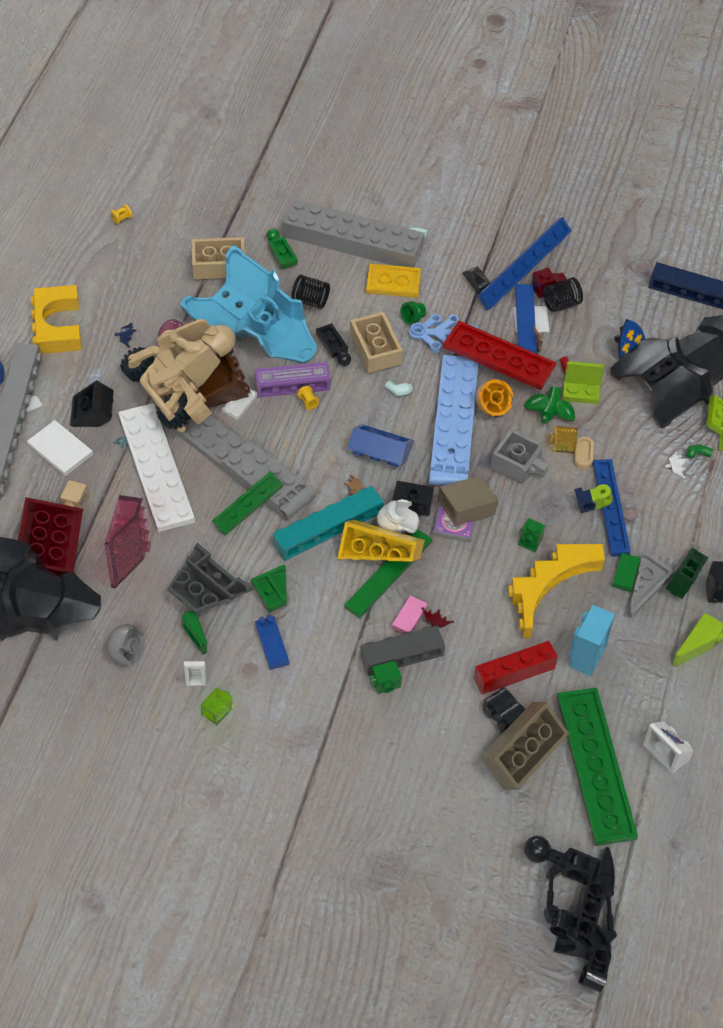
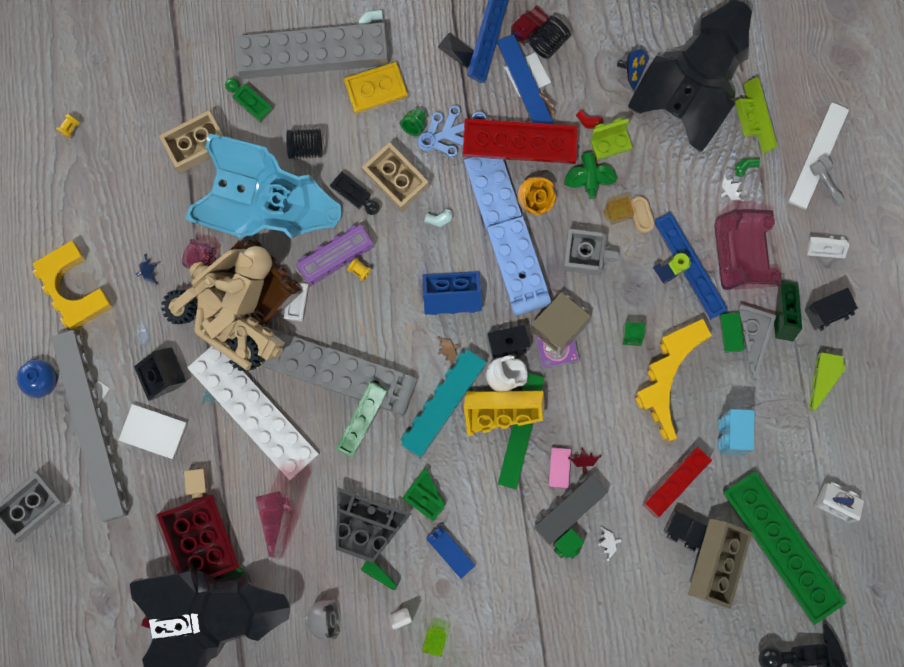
camera: 20 degrees left, 25 degrees up
(426, 695) = (609, 542): none -> white piece
(669, 508) = (744, 249): none -> clear pink windscreen

